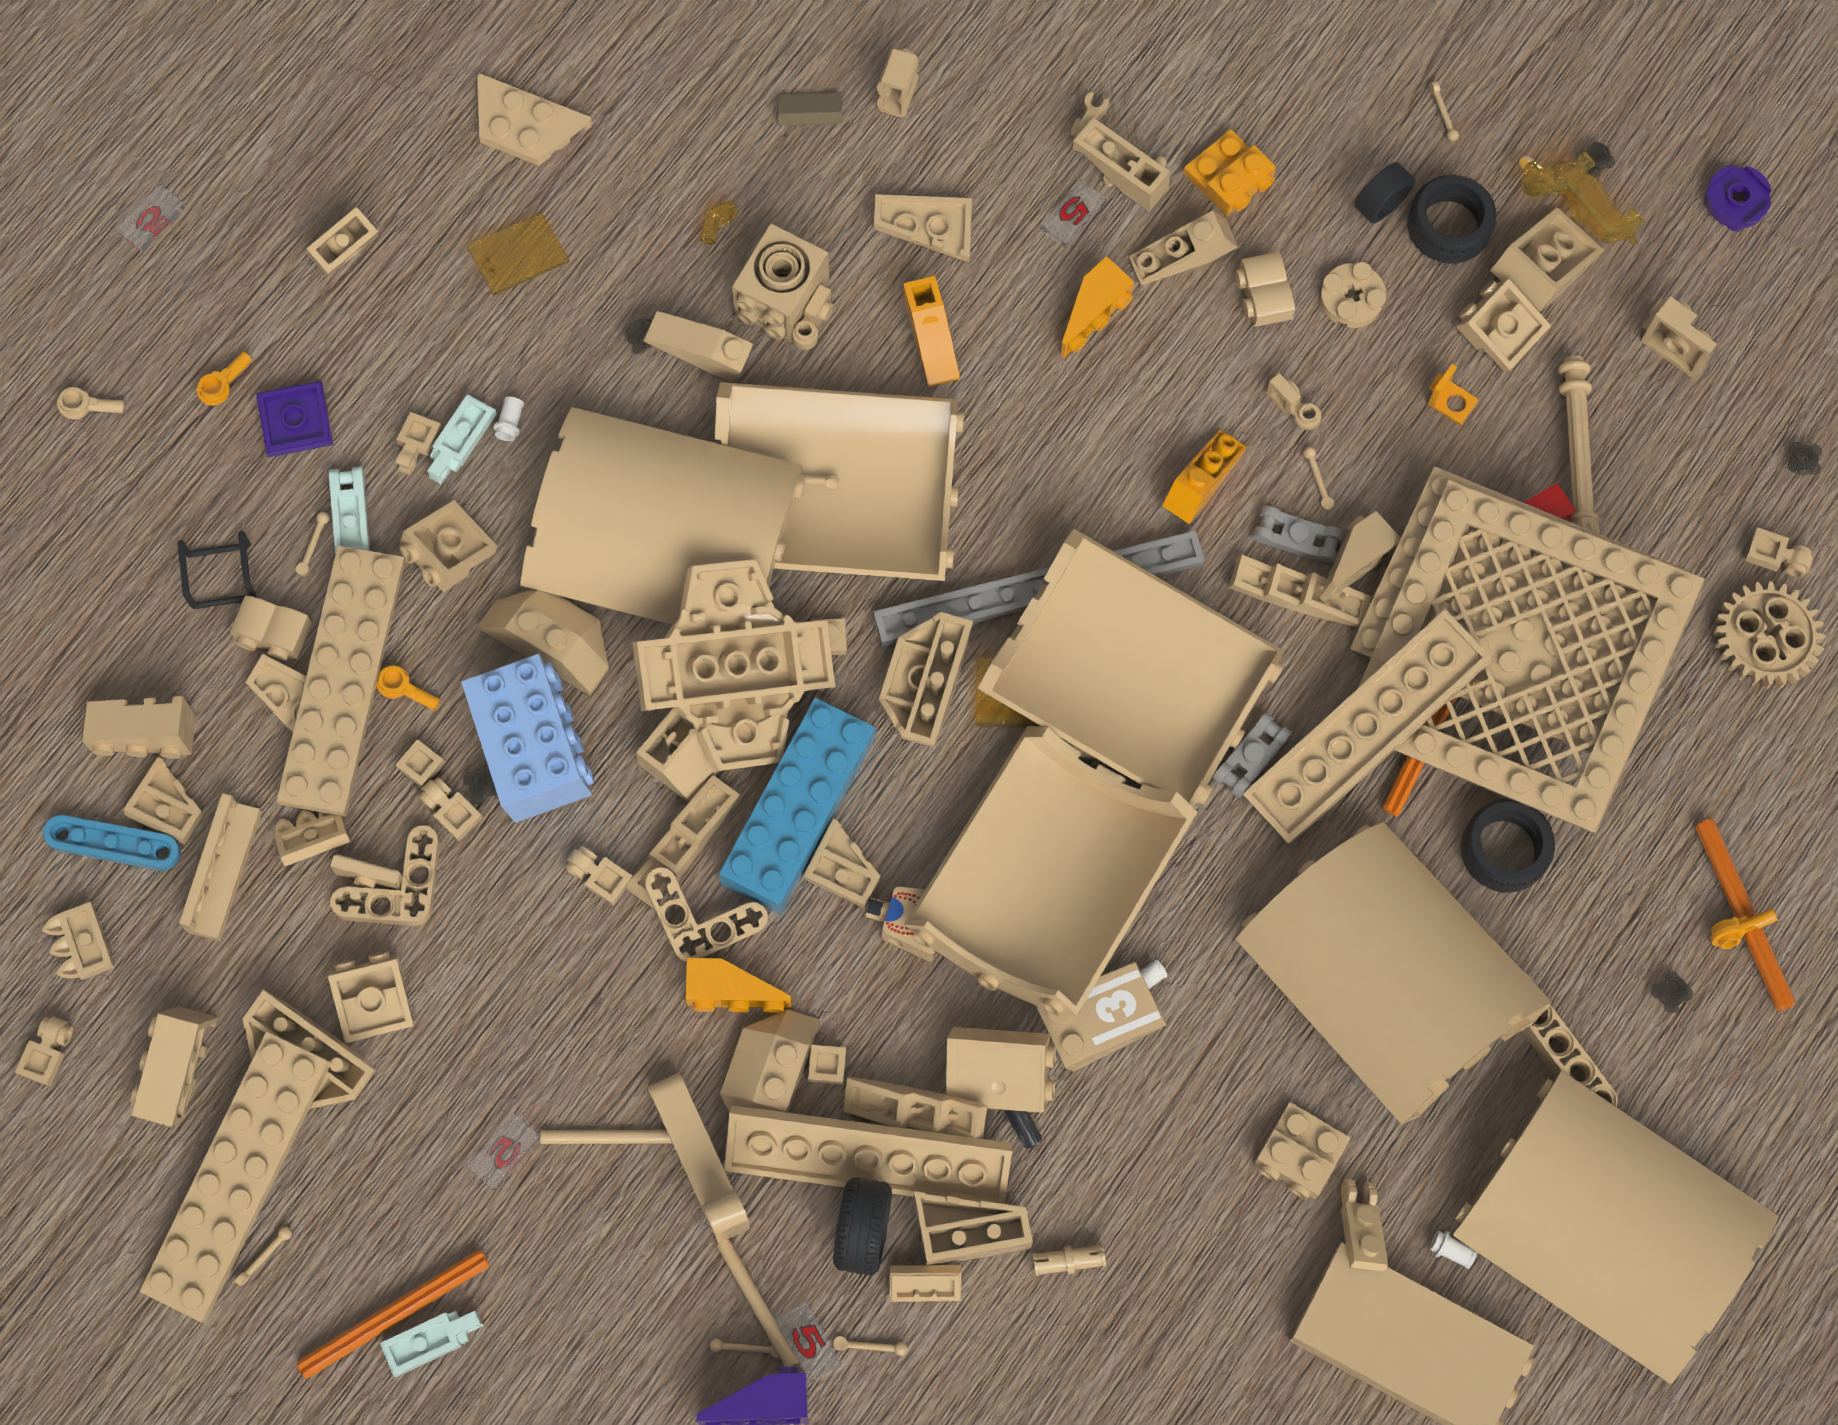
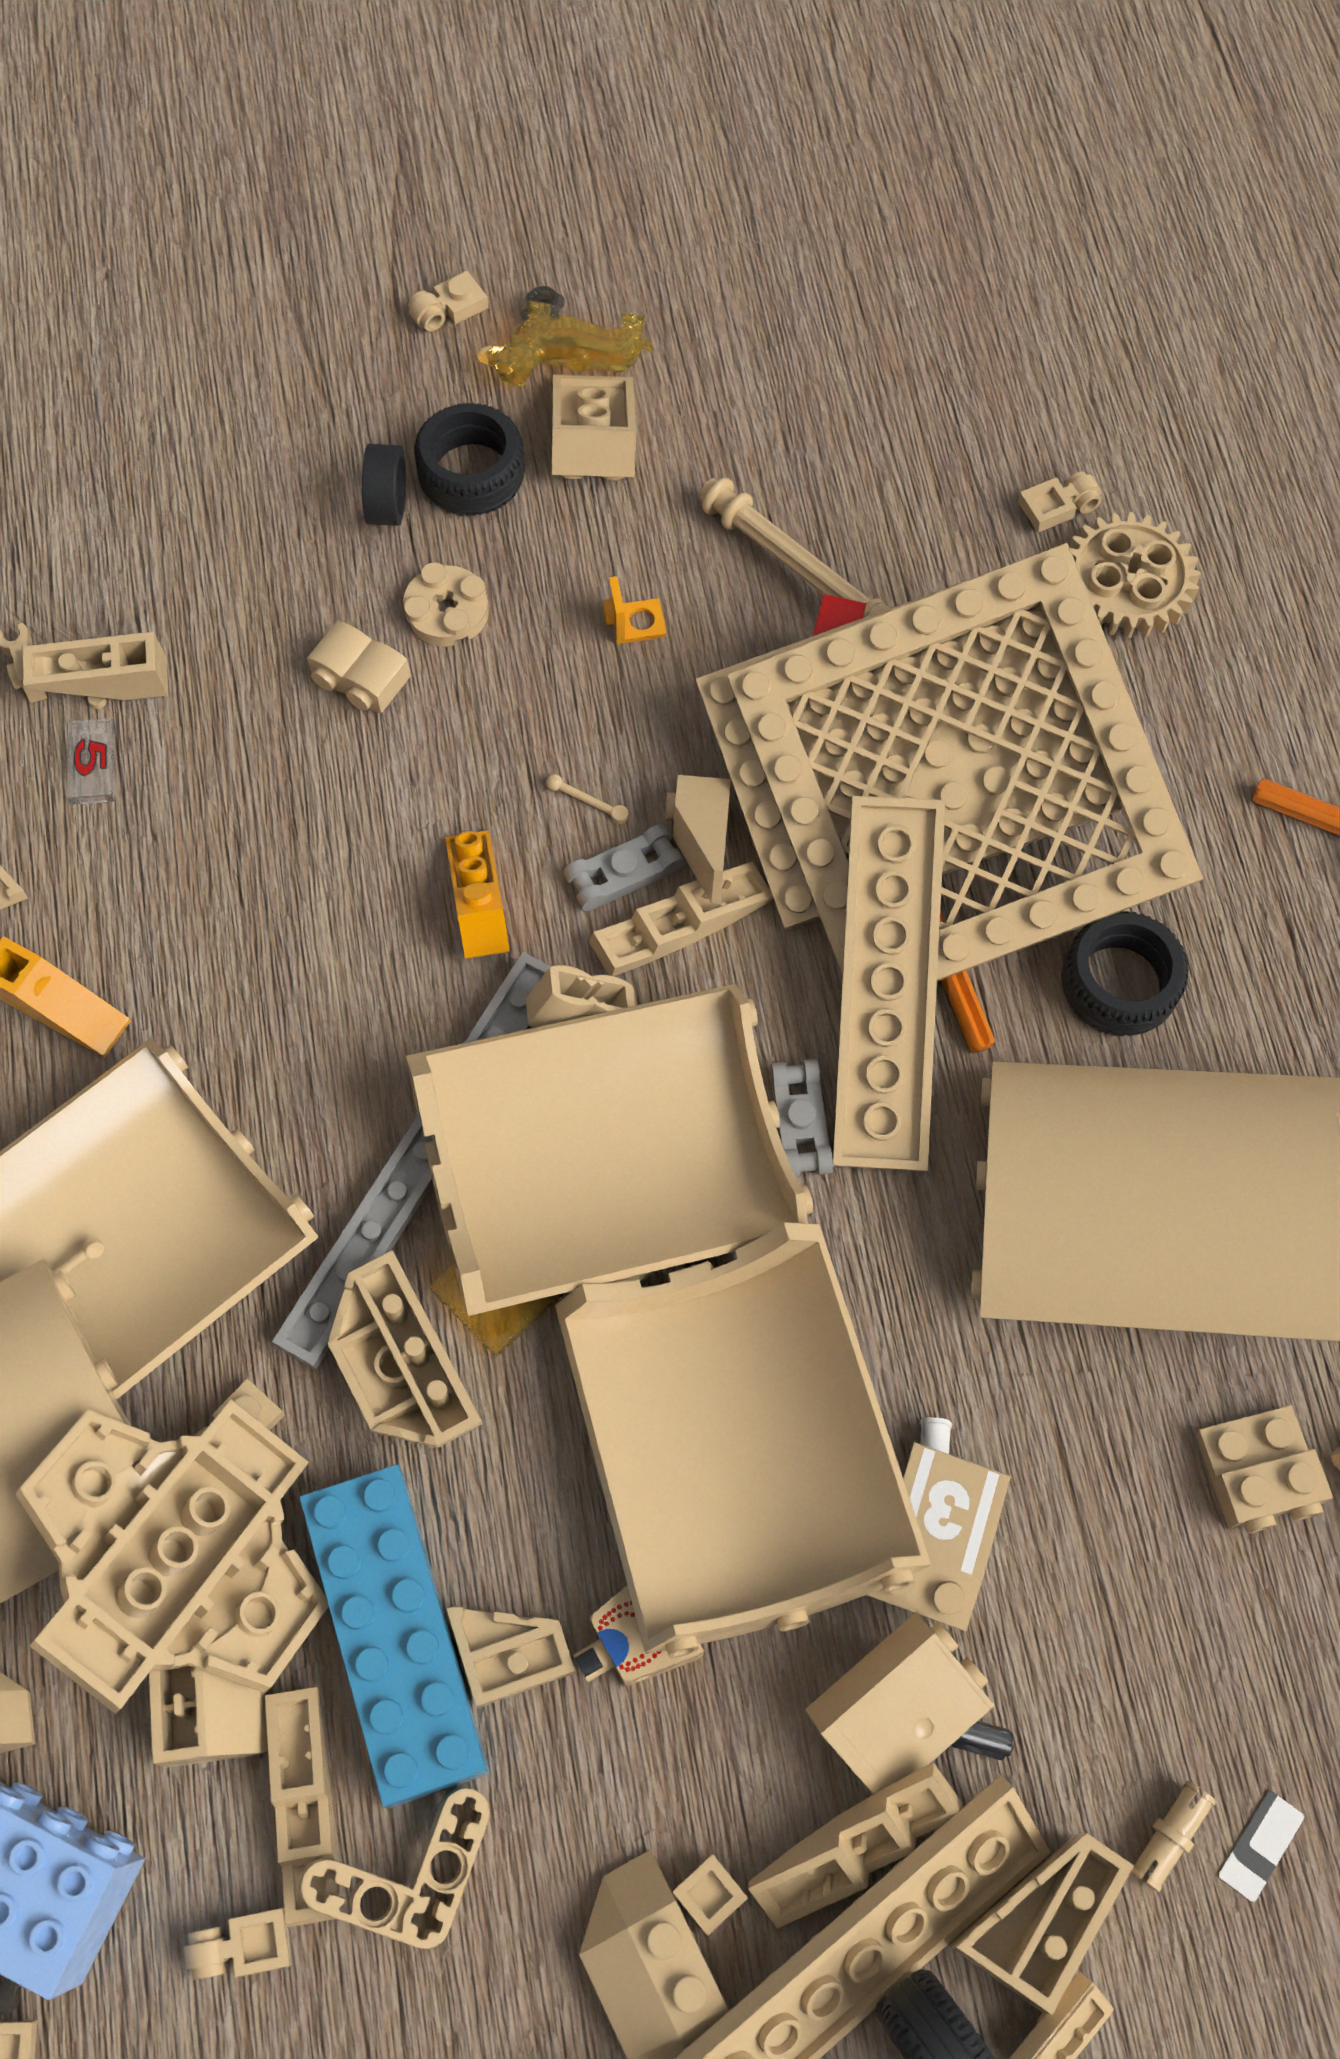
camera: 45 degrees left, 5 degrees down
(722, 984) = (507, 1925): light orange slope -> none
(1100, 295) = (198, 810): light orange slope -> none
(1108, 1310) = (1261, 1846): none -> white sticker
(1185, 248) = (239, 698): tan slope -> none
(1193, 577) = (571, 994): none -> tan brick
(1231, 172) = (214, 593): light orange plate -> none
(1287, 398) = (482, 749): tan plate -> none
(1452, 134) = (334, 366): tan hinge -> none
(1502, 323) = (612, 510): tan plate -> none
(1550, 108) = (455, 297): none -> tan plate
(1675, 338) = (780, 387): tan plate -> none
(1732, 213) = (697, 256): dark purple plate -> none
(1798, 465) = (991, 404): clear smoke plate -> none

